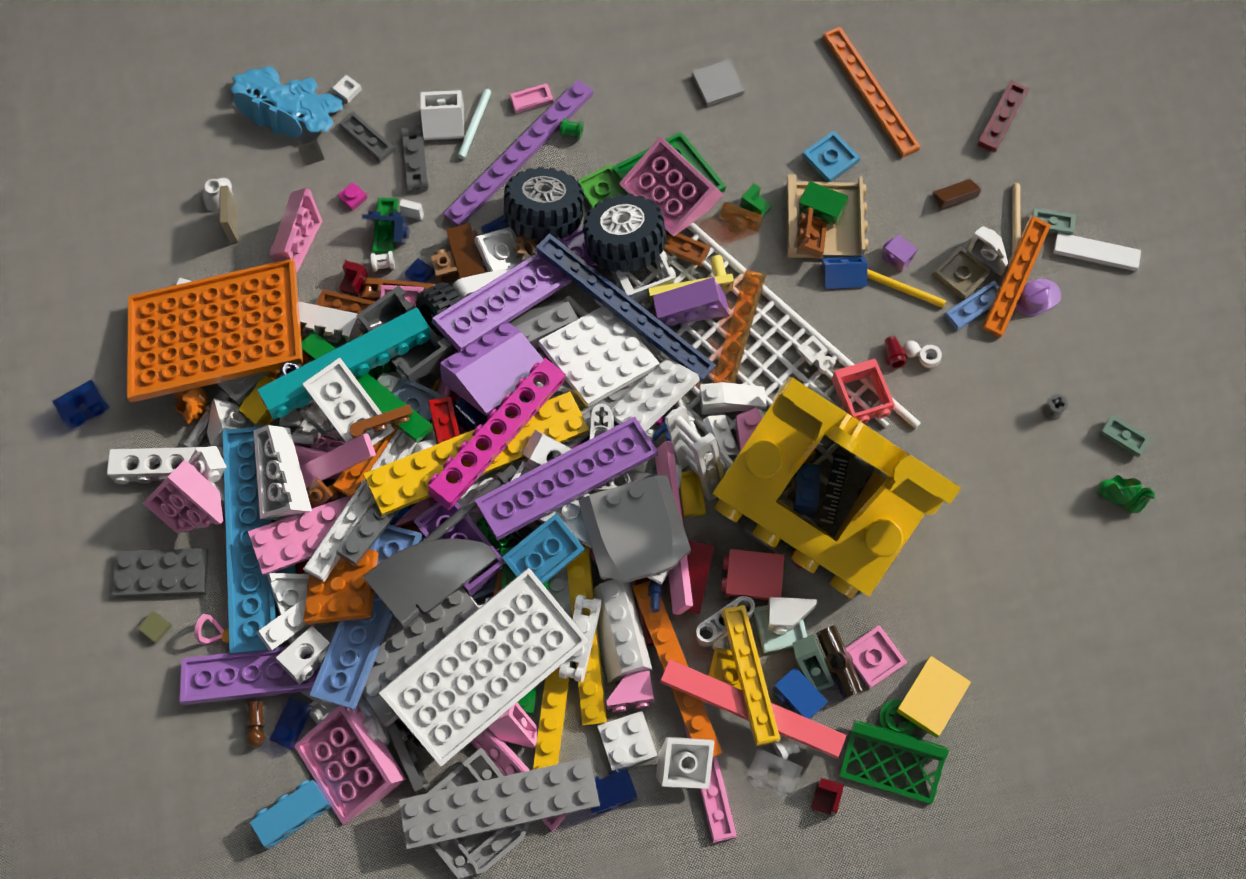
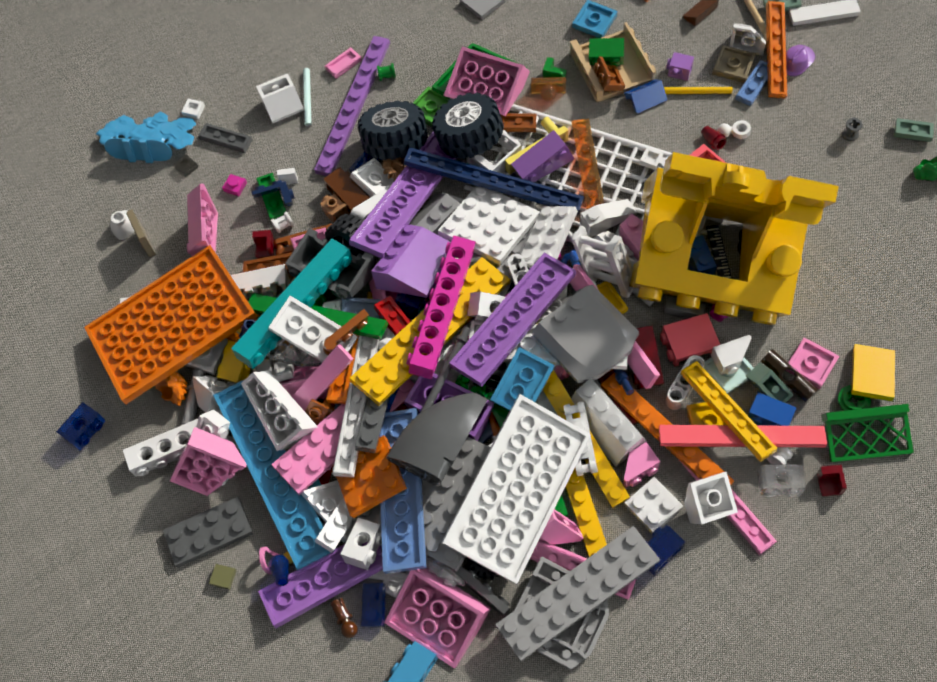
camera: 15 degrees left, 5 degrees down
(212, 644) = (280, 569): none -> clear blue cone
(415, 158) = (271, 138): dark grey plate -> none
(419, 271) = (315, 219): clear blue plate -> none

